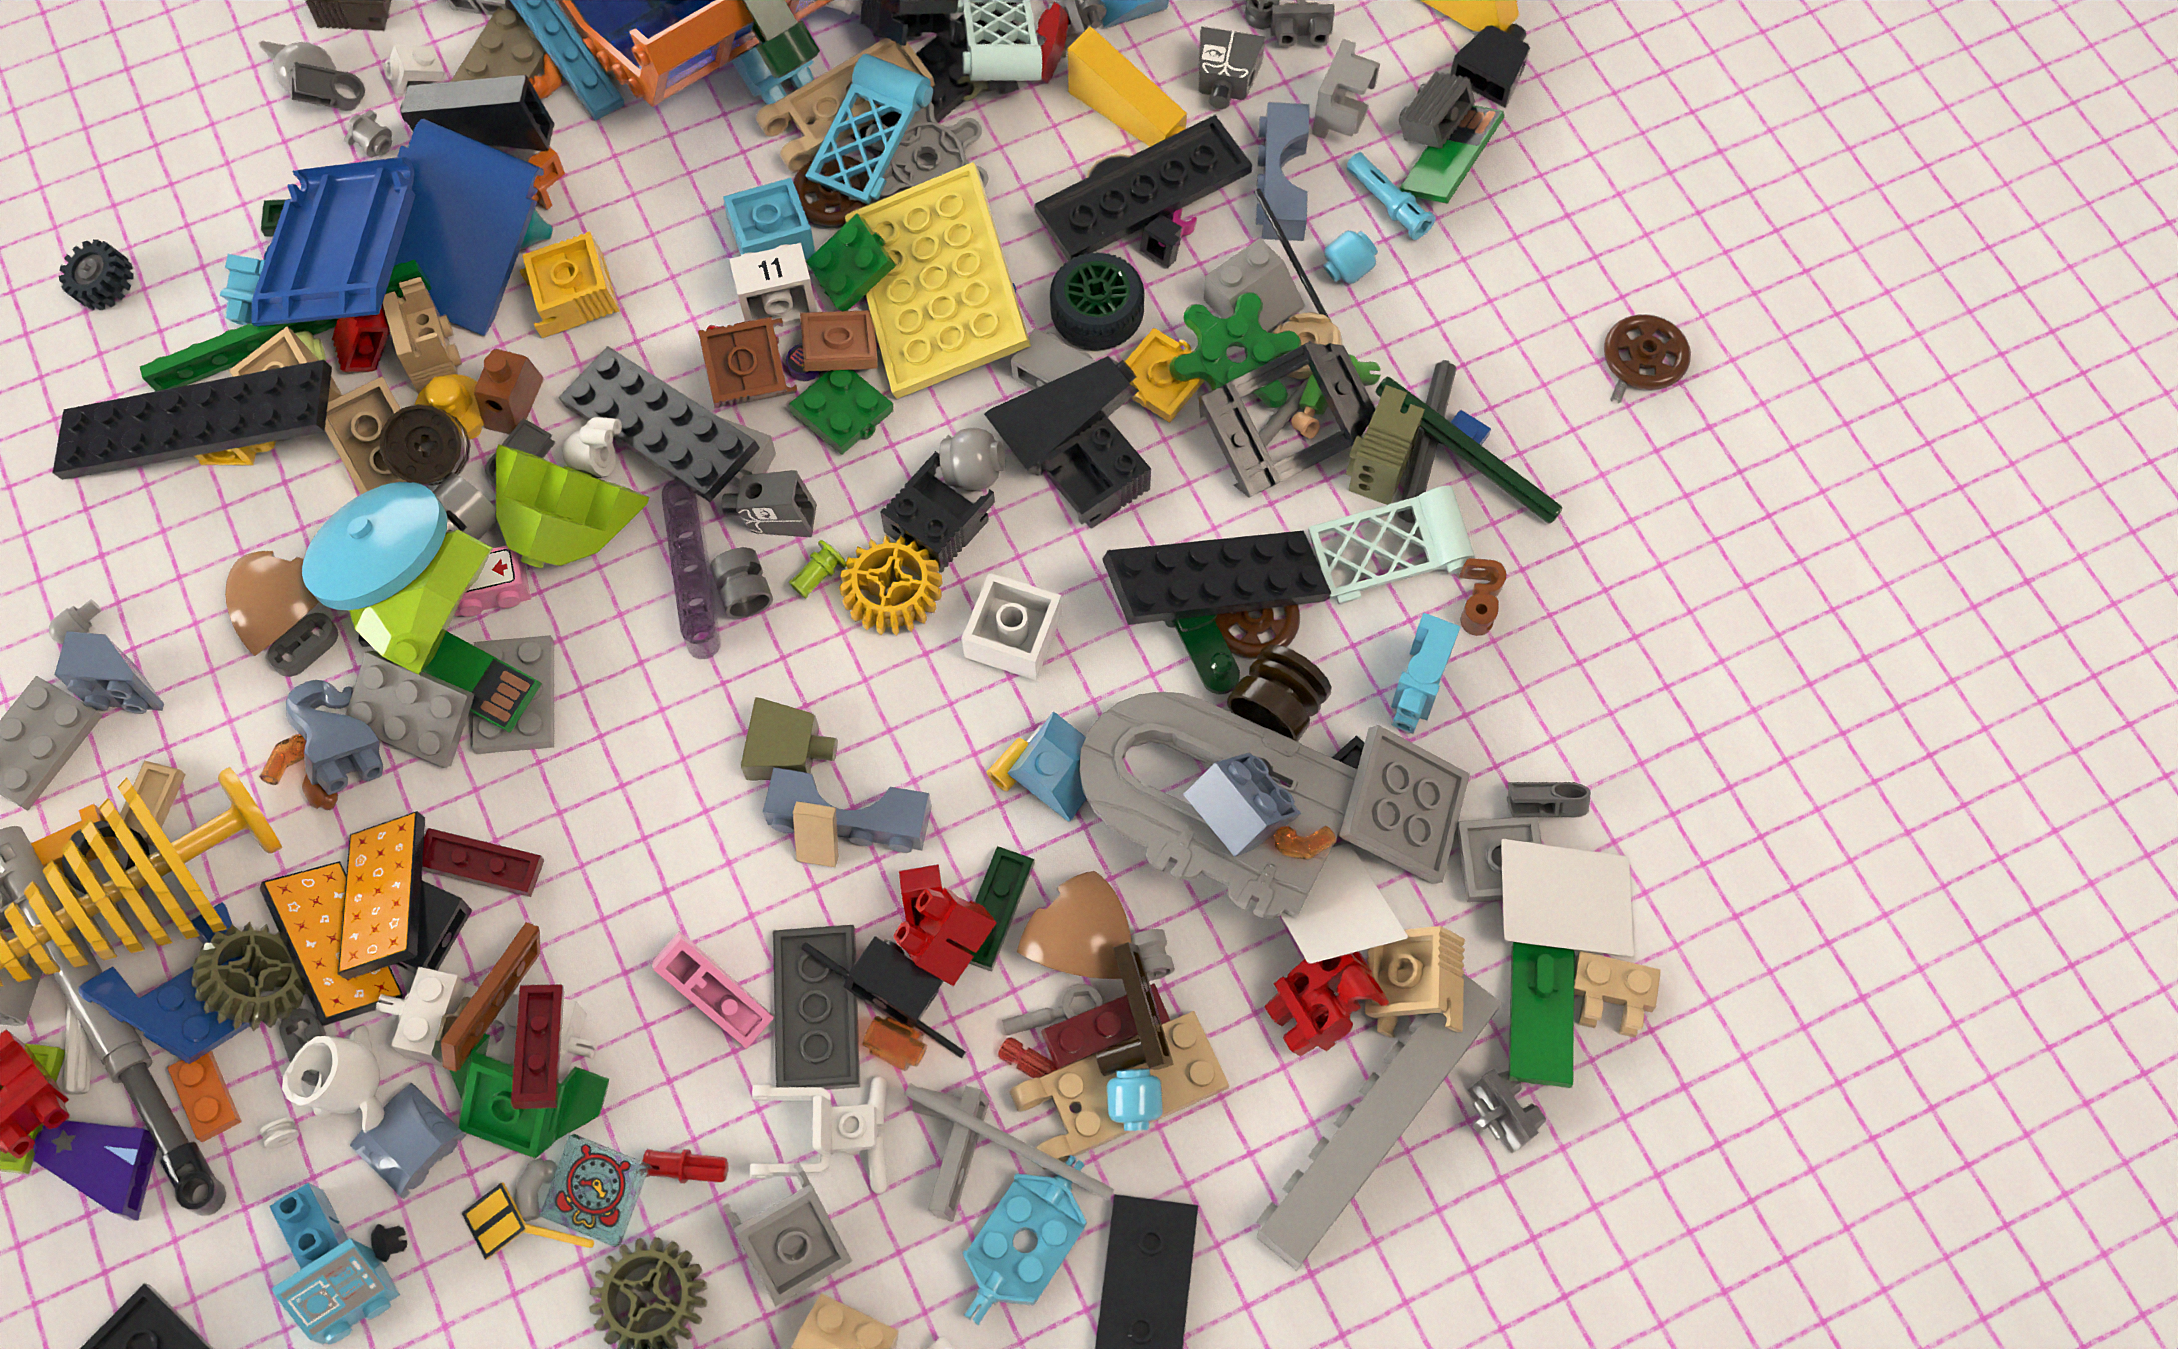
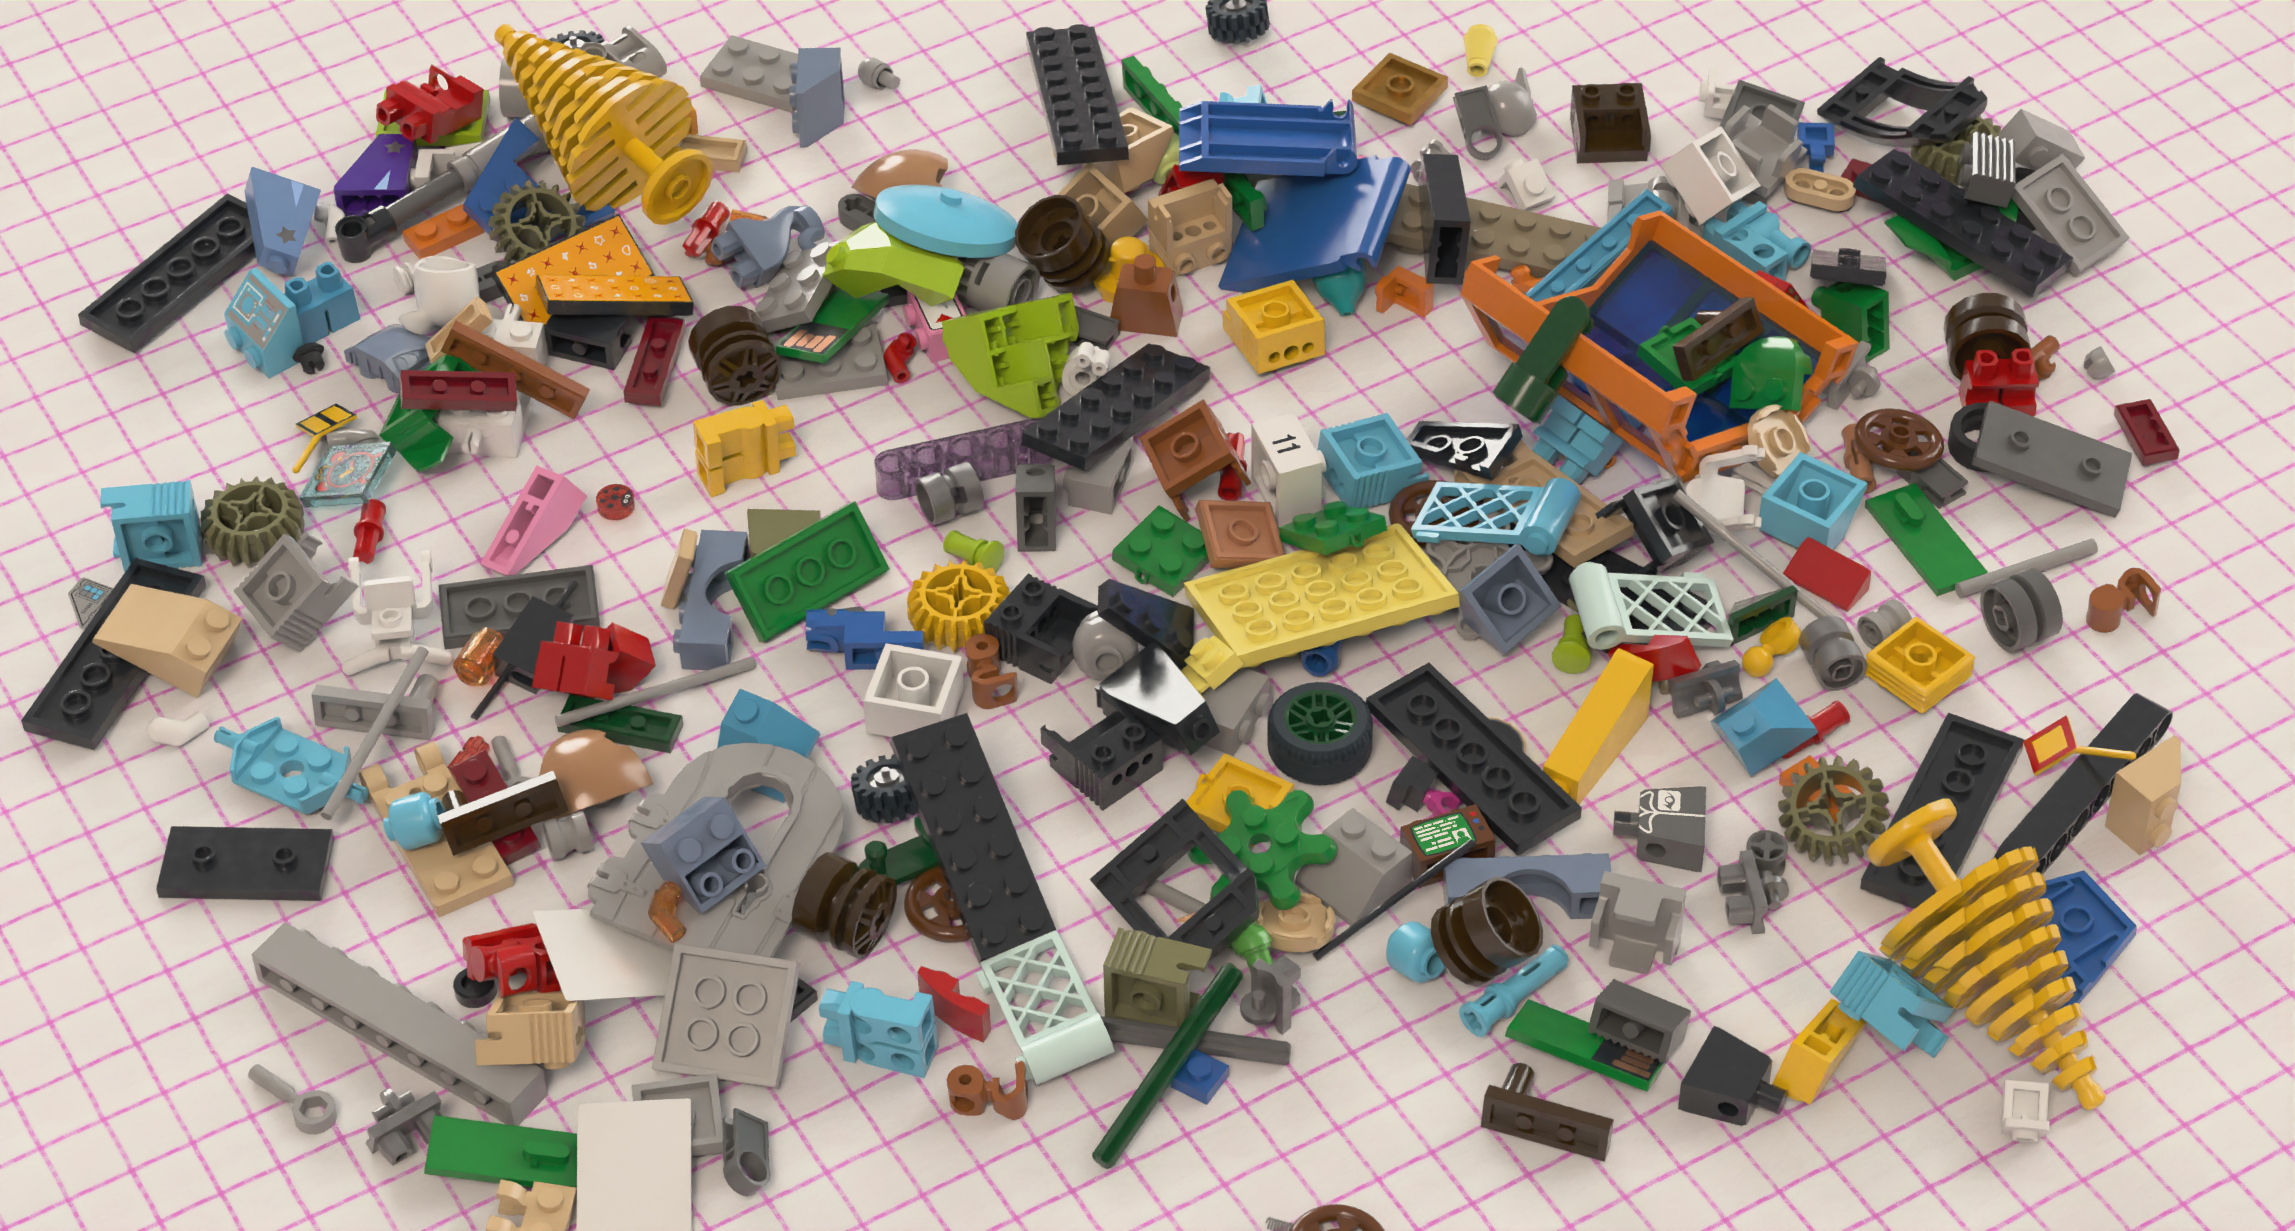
camera: 85 degrees right, 20 degrees down
(94, 1105) = (429, 165): none -> white bracket
(153, 1220) = (330, 215): none -> white arm
(158, 1277) = (279, 218): none -> medium blue slope
(209, 80) = (1479, 49): none -> light yellow cone
(246, 151) = (1399, 88): none -> pearl gold plate
(284, 805) = (706, 229): none -> red axle
(418, 1057) = (474, 315): none -> tan tile
(501, 773) = (734, 355): none -> dark brown wheel
(521, 626) = (897, 356): none -> red arm
(643, 770) = (742, 444): none -> yellow hips
(680, 908) = (615, 502): none -> clear red tile
(767, 145) = (1466, 445): none -> black wing
(834, 715) = (806, 571): none -> green plate
(917, 676) = (856, 634): none -> blue plate
(954, 415) = (1148, 618): none -> black wing
(962, 570) = (984, 669): none -> dark orange leg
(963, 864) = (655, 691): none -> light grey axle
(972, 134) = (1507, 600): none -> sand blue slope
(1009, 105) = (1572, 650): none -> lime pin
(1015, 371) = (1210, 664): none -> light yellow plate
(1123, 657) = (881, 791): none -> black wheel
(1230, 218) = (1442, 834): none -> brick
(1328, 1060) = (473, 993): none -> black tile
(1355, 201) = (1486, 931): none -> dark brown wheel
(1380, 622) = (958, 1011): none -> red slope
(1402, 359) = (1272, 993): none -> flat silver hips
(1451, 1232) = (300, 1103): none -> light grey piece
(1520, 212) = (1542, 1121): none -> dark brown piece

